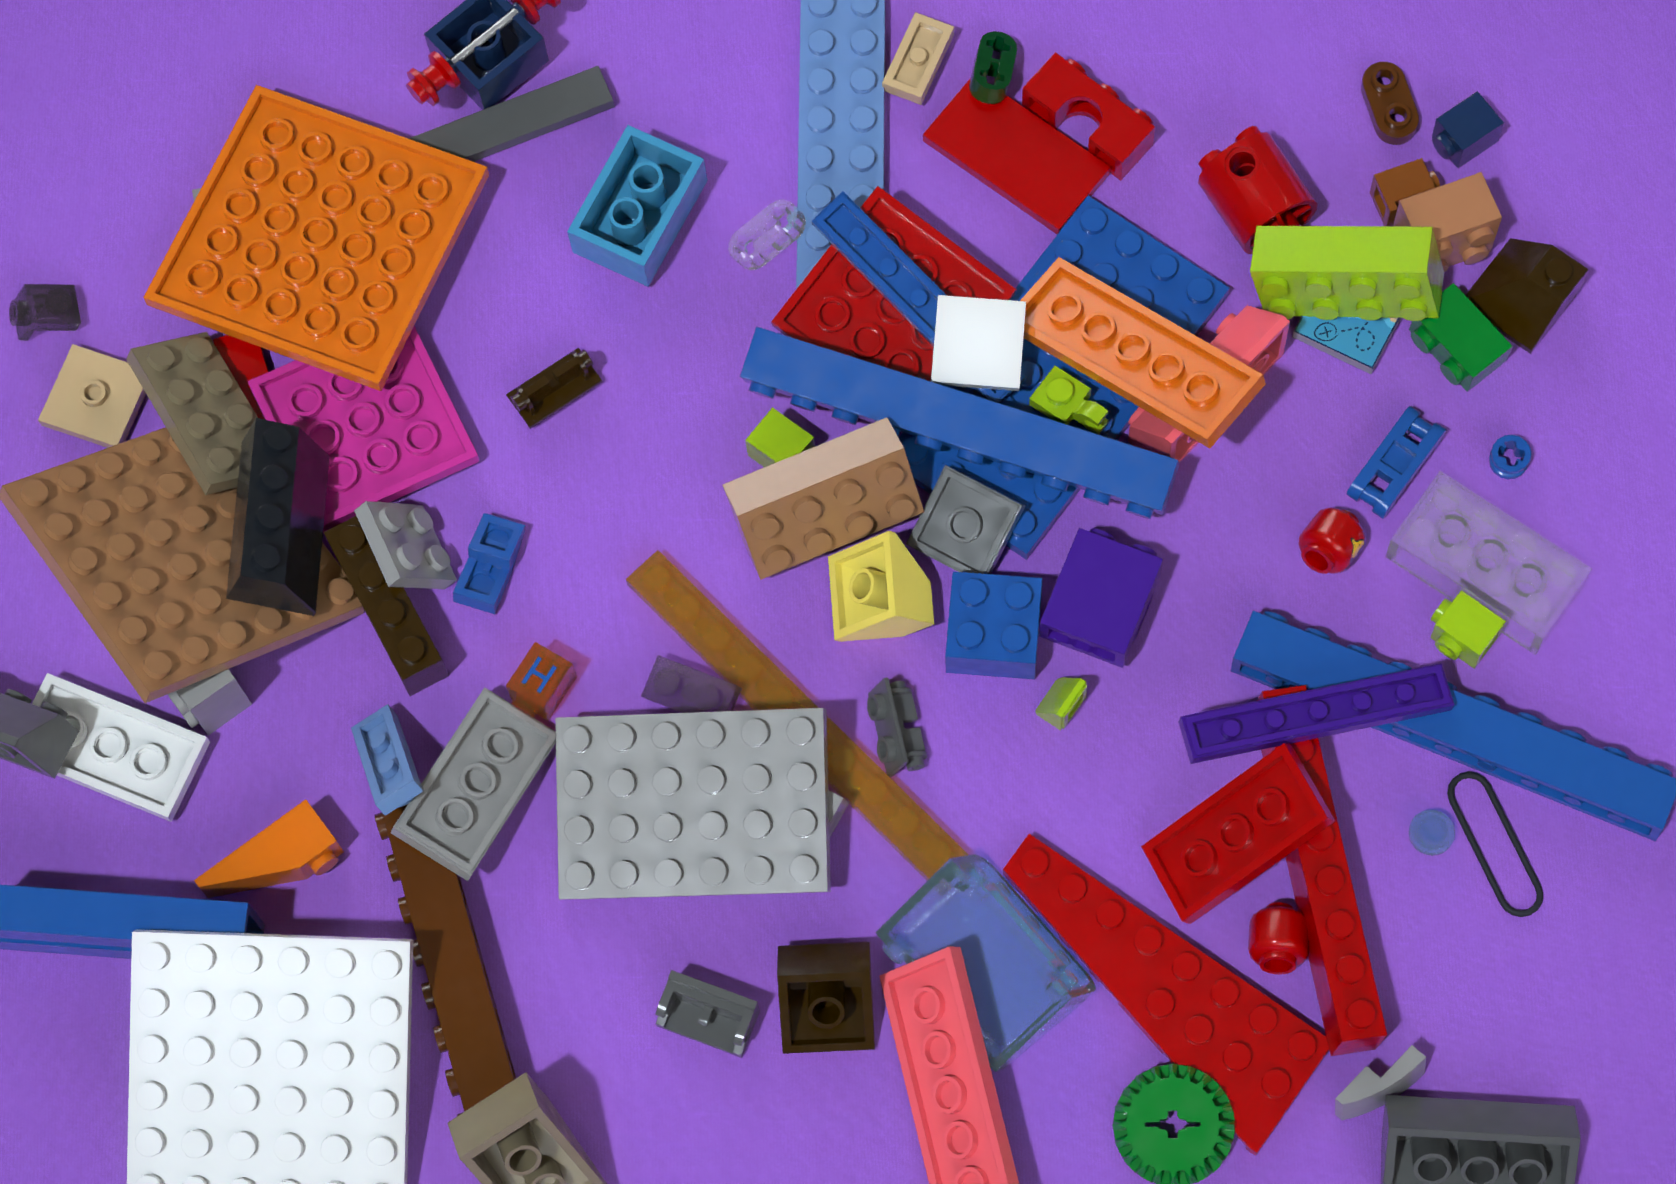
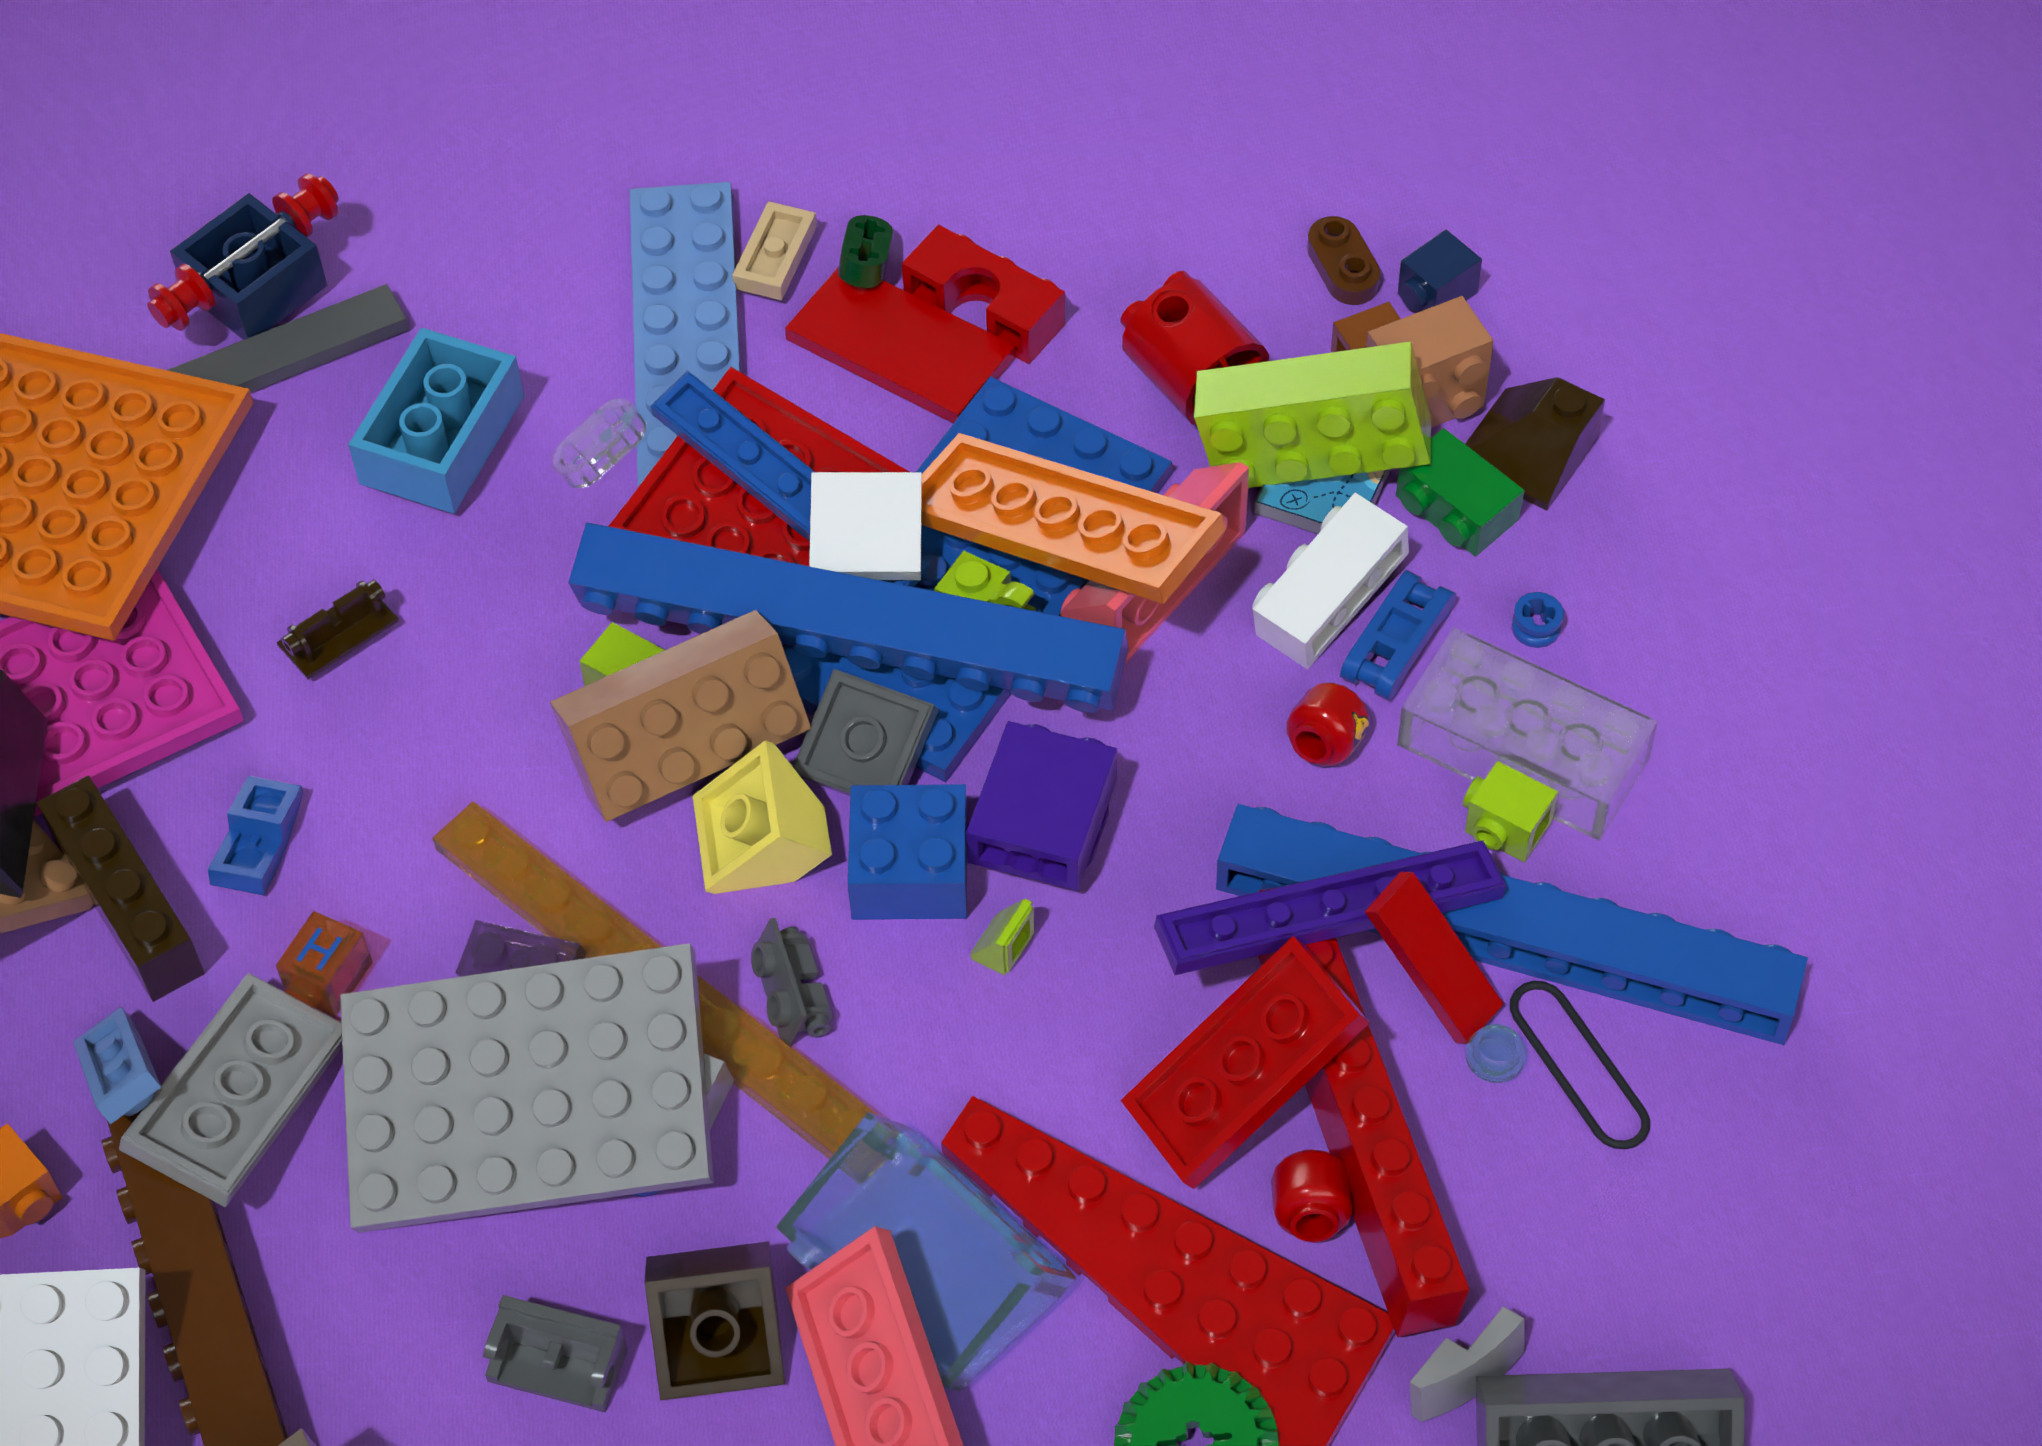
camera: 10 degrees left, 15 degrees down
(405, 545) = (144, 812): light grey plate -> none
(1346, 412) = (1330, 580): none -> white brick
(1391, 758) = (1434, 957): none -> red tile

